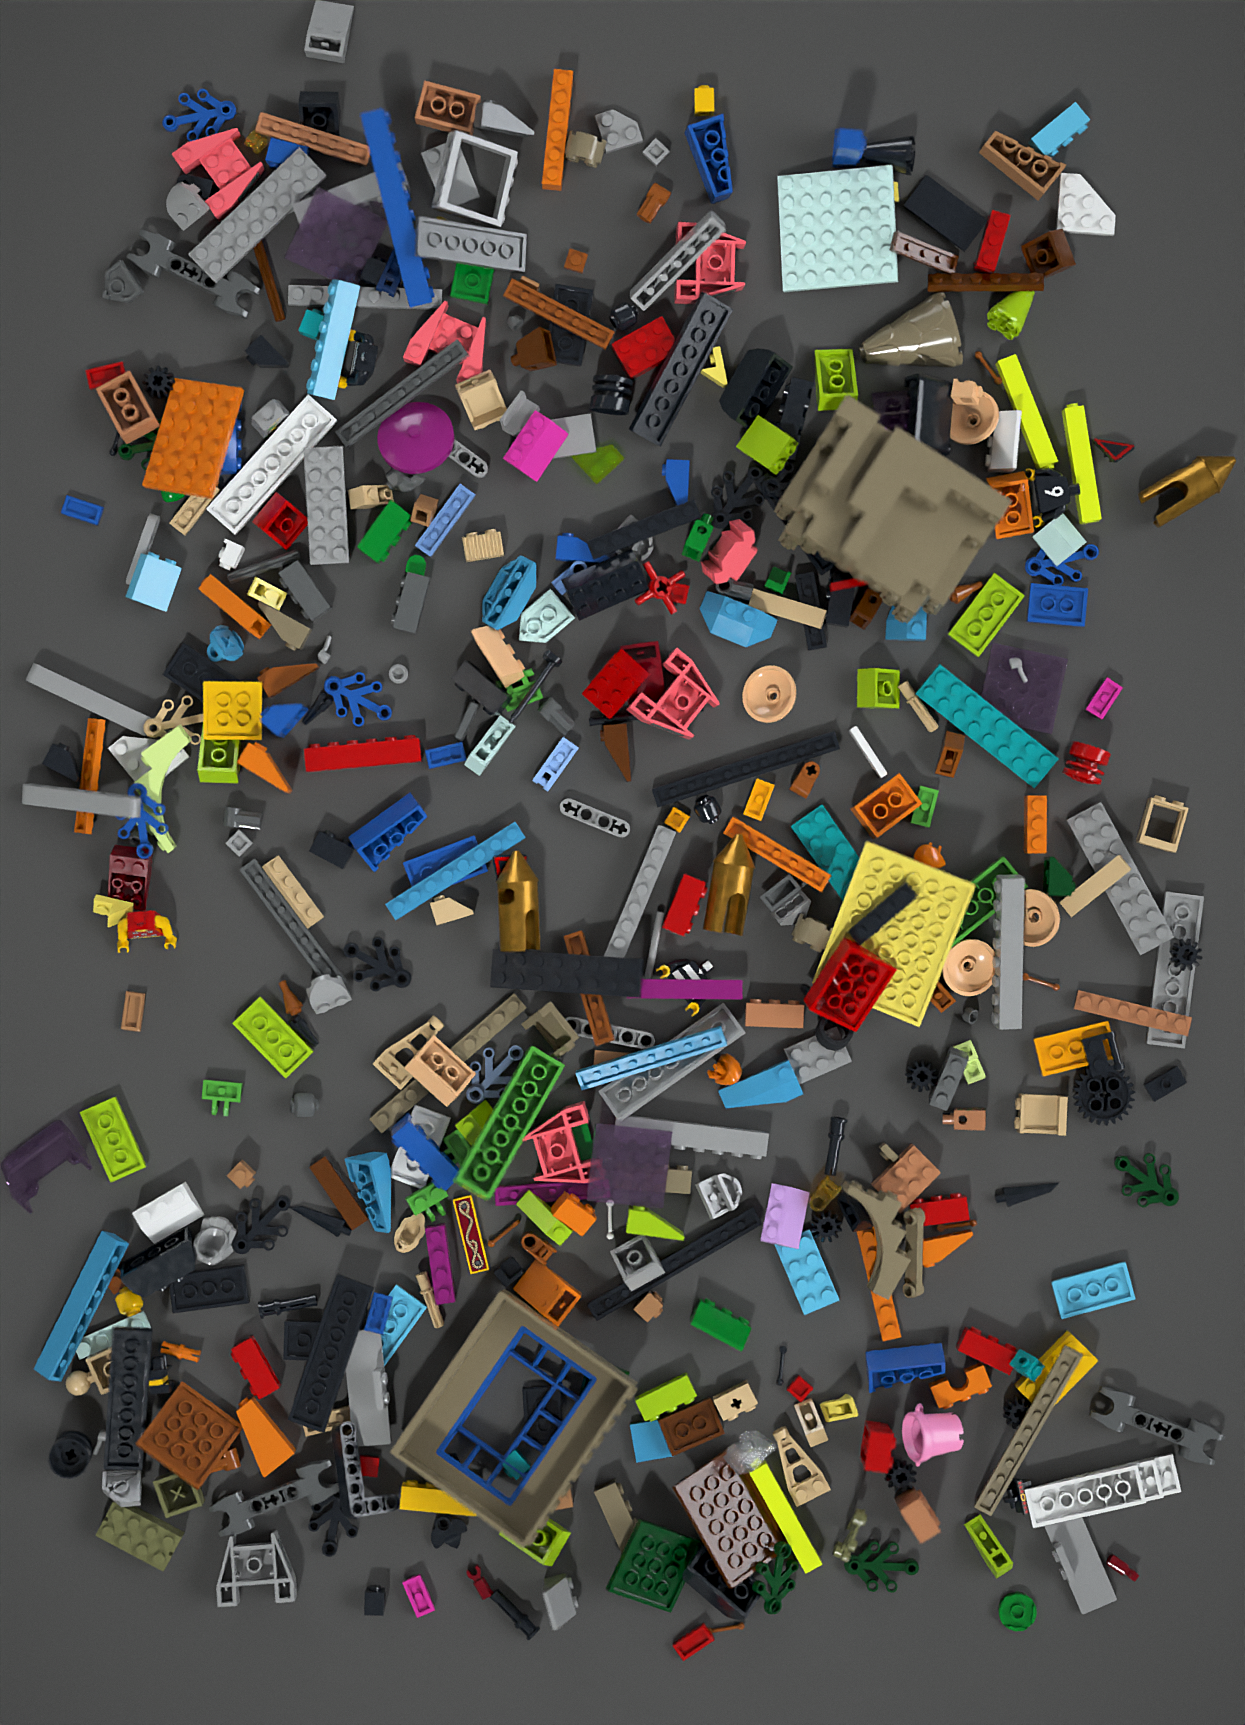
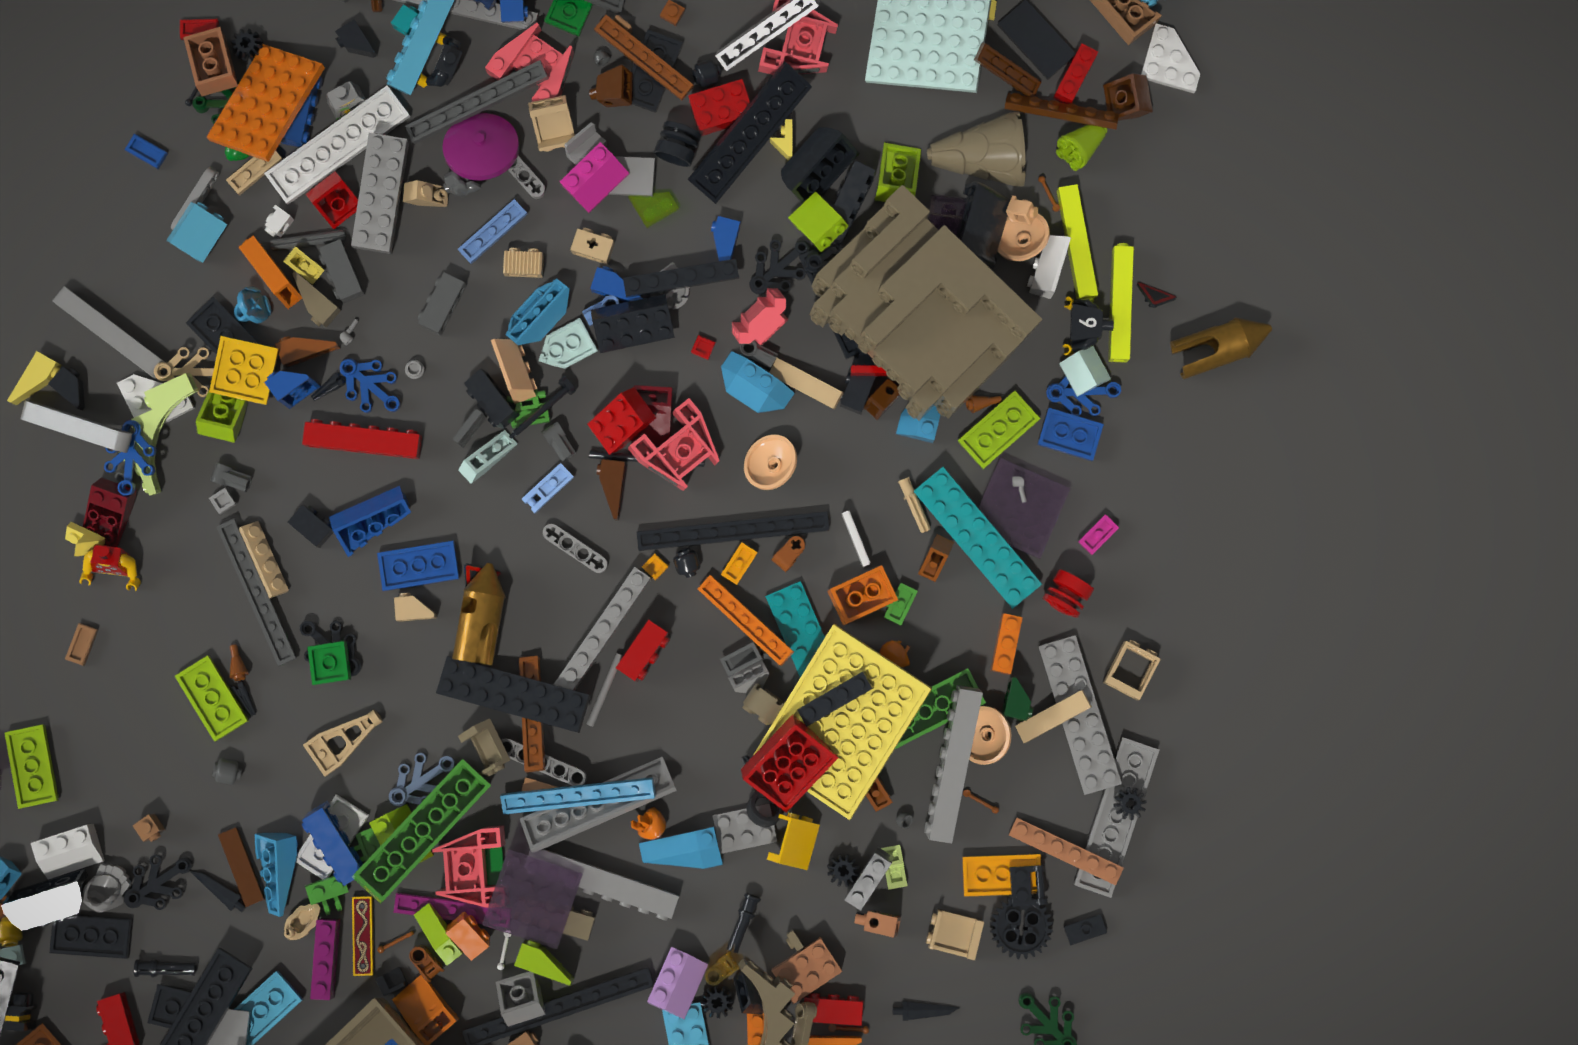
camera: 10 degrees right, 5 degrees down
(29, 755) = (35, 377): none -> light yellow slope
(90, 770) = (94, 401): orange plate -> none
(180, 1351) = (48, 993): orange pin -> none
(221, 1091) = (148, 741): bright green hinge -> none
(261, 763) = (259, 425): orange slope -> none
(327, 993) = (274, 665): light grey slope -> none
(378, 1313) = (251, 996): blue plate -> none
(381, 979) = (329, 663): none -> green plate
(385, 532) = (430, 230): green slope -> none
(416, 564) = (455, 268): green tile -> none
(424, 510) = (473, 217): medium nougat brick -> none
(429, 1297) = (305, 983): tan axle -> none
(440, 1070) = (366, 765): light nougat slope -> none
(445, 755) = (442, 457): blue plate -> none
(455, 871) = (425, 571): dark azure plate -> none
(463, 1049) = (377, 760): dark tan plate -> none
(538, 519) = (599, 253): none -> tan brick
(665, 583) = (692, 335): red bar -> none
(687, 970) = (632, 727): torso -> none
(691, 989) = (631, 735): magenta tile -> none
(697, 542) = (733, 298): green torso -> none
(719, 1194) = (618, 947): light grey slope -> none
(730, 885) = (695, 634): pearl gold piece -> none
(774, 1014) = (709, 778): nougat brick -> none
(777, 580) = (802, 355): green panel -> none
(808, 595) = (829, 374): black plate -> none
(873, 1058) = (797, 842): none -> yellow panel
(878, 688) = (878, 479): lime slope -> none
(977, 975) = (913, 784): light nougat dish -> none
(1018, 516) = (1047, 338): orange slope -> none

